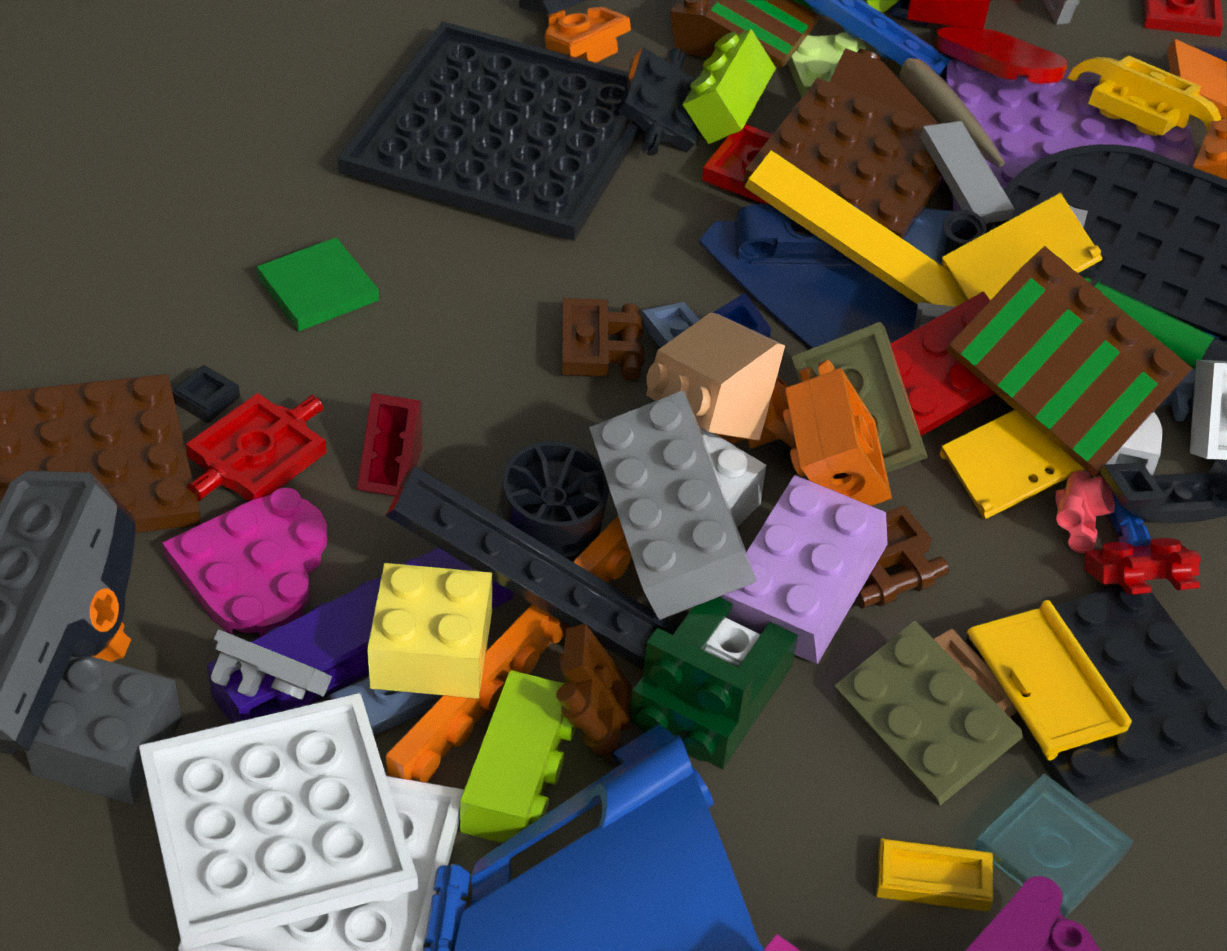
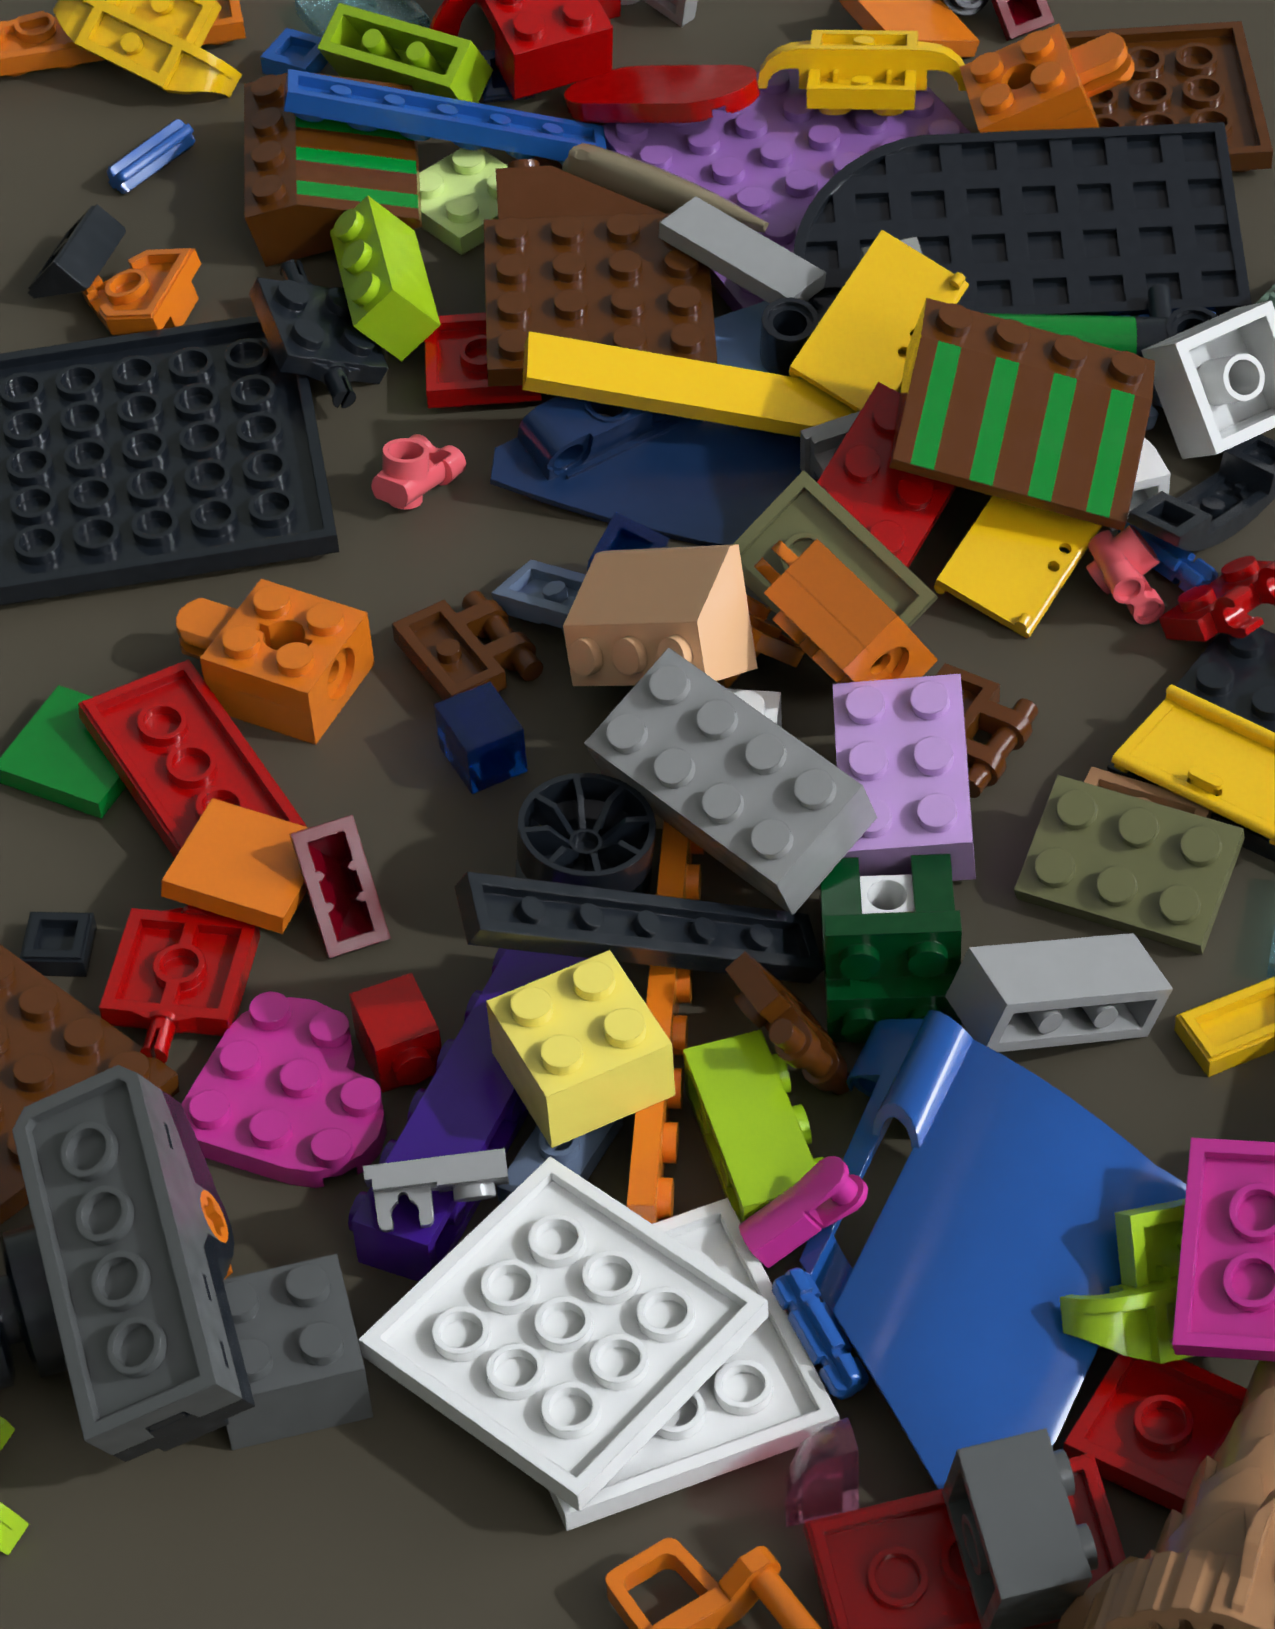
camera: 25 degrees left, 0 degrees up
(334, 399) = (239, 867): none -> orange tile
(348, 555) = (396, 1032): none -> red brick
(366, 328) = (180, 752): none -> red tile
(477, 285) = (279, 656): none -> orange brick
(497, 828) = (803, 1210): none -> dark pink bar
(559, 398) = (481, 737): none -> clear blue brick
(657, 210) = (414, 468): none -> coral plate
(796, 774) = (1058, 992): none -> light grey brick

